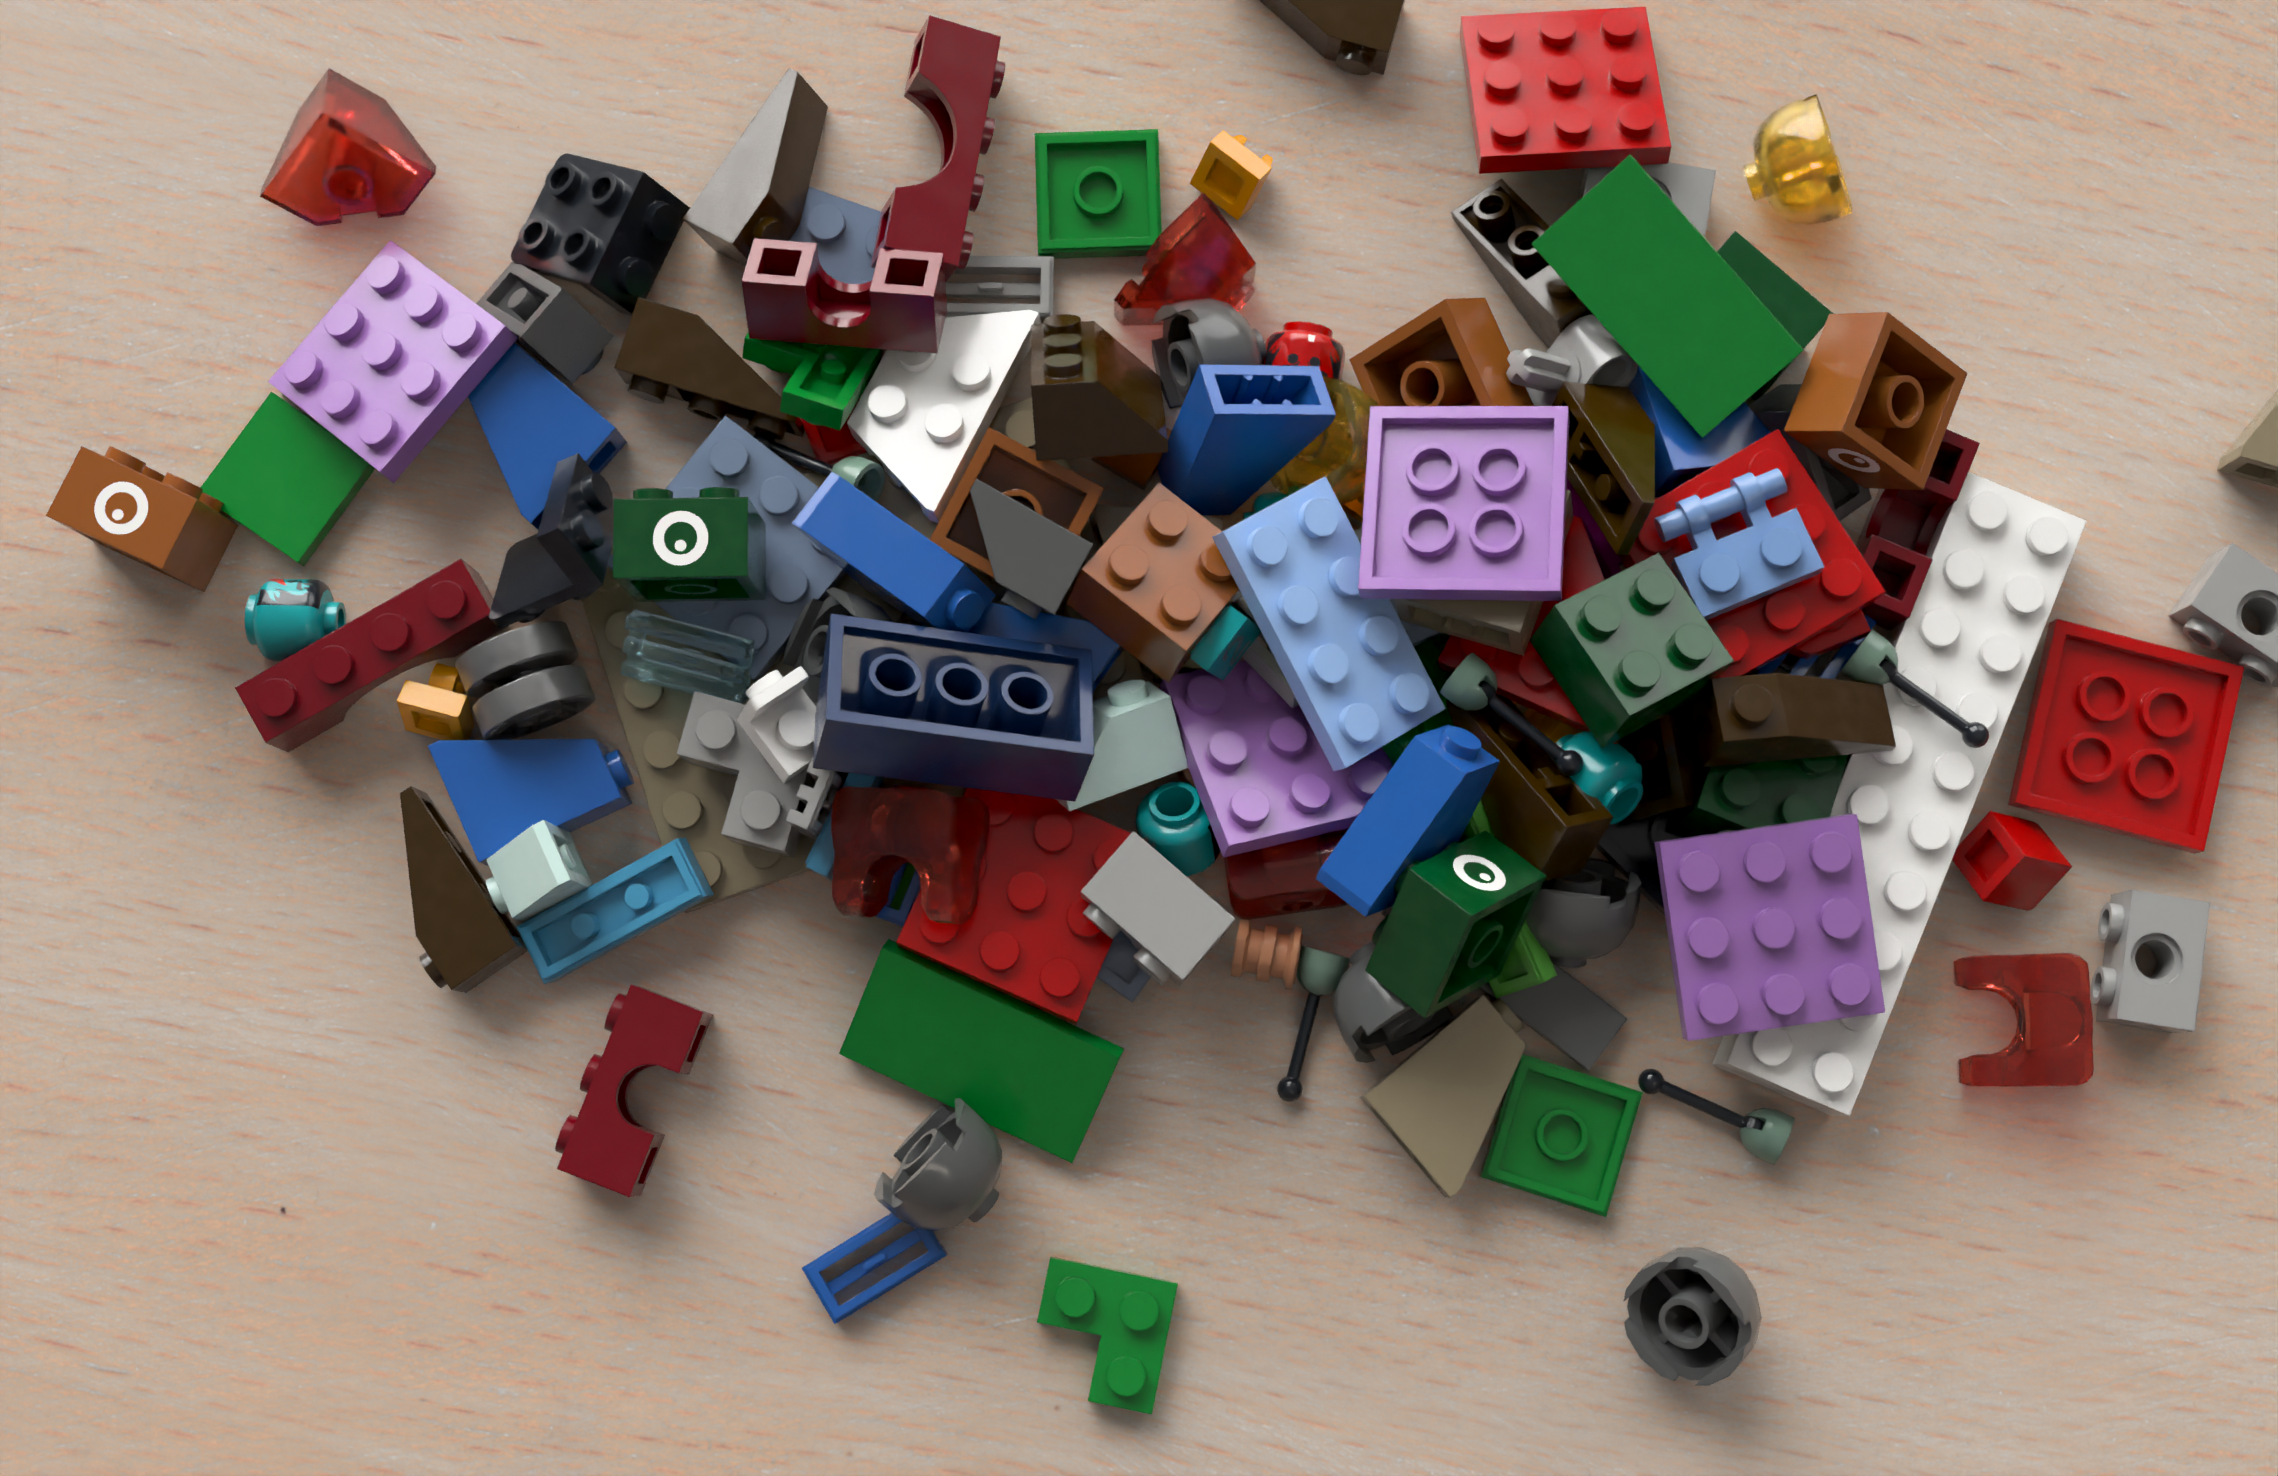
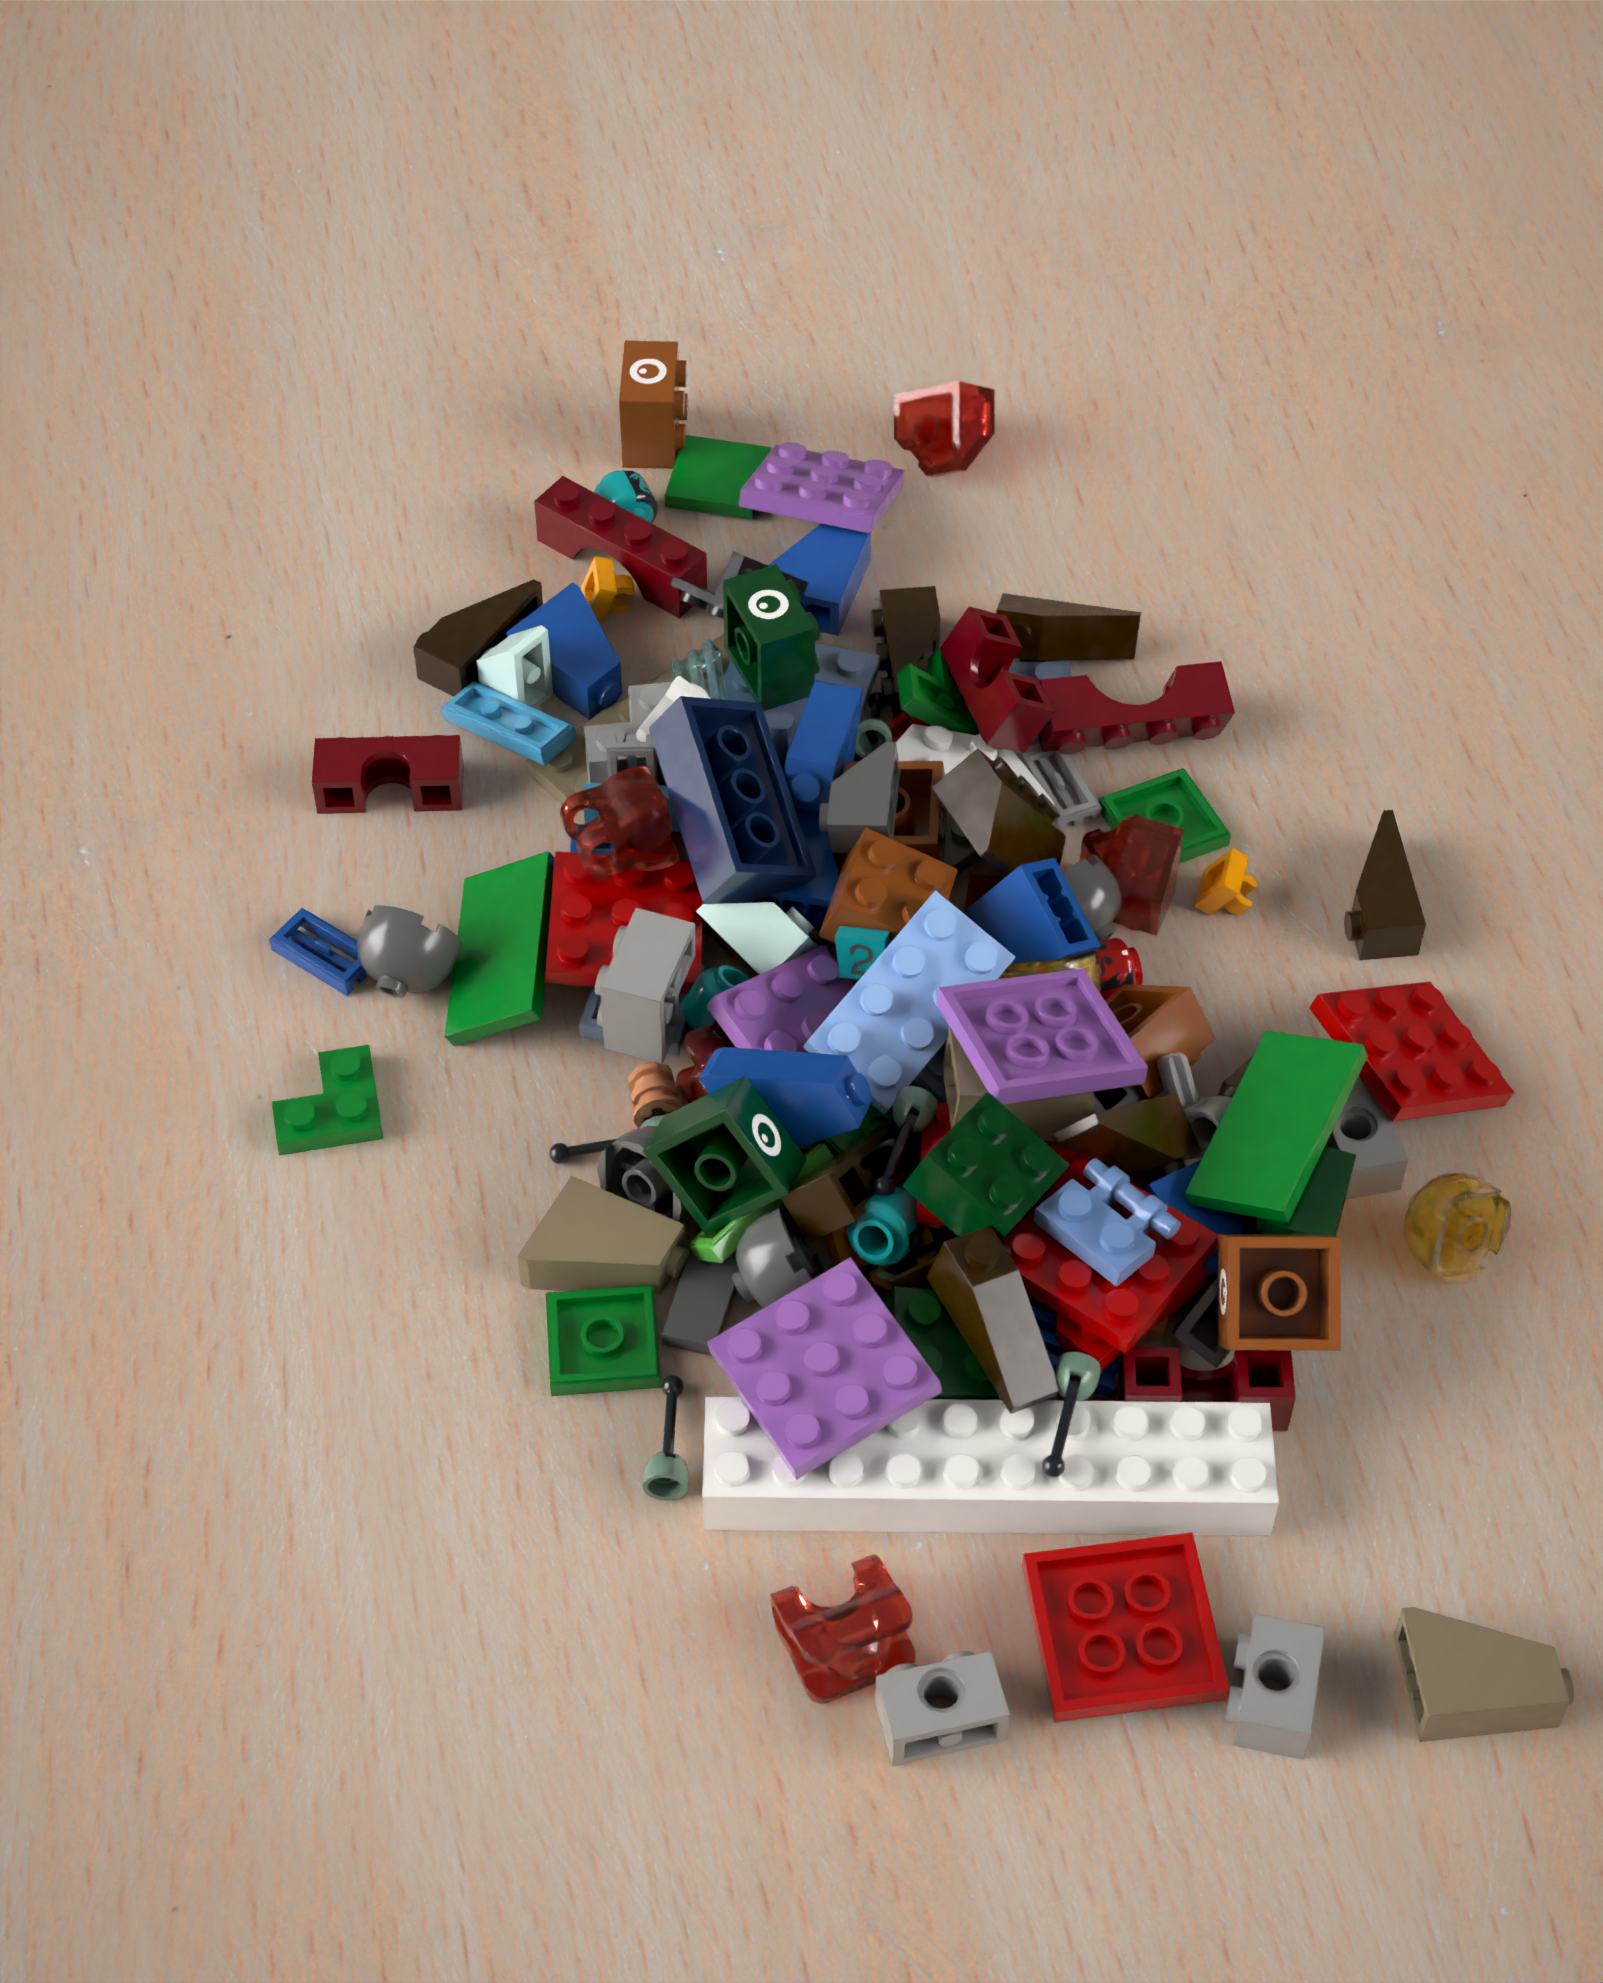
camera: 65 degrees right, 30 degrees down
(525, 680) = (643, 617): flat silver wheel -> none
(546, 321) = (891, 558): dark grey slope -> none
(600, 229) = (972, 567): black bracket -> none
(1692, 1315) = (498, 1455): dark grey cylinder -> none
(2010, 861) = (973, 1573): red panel -> none

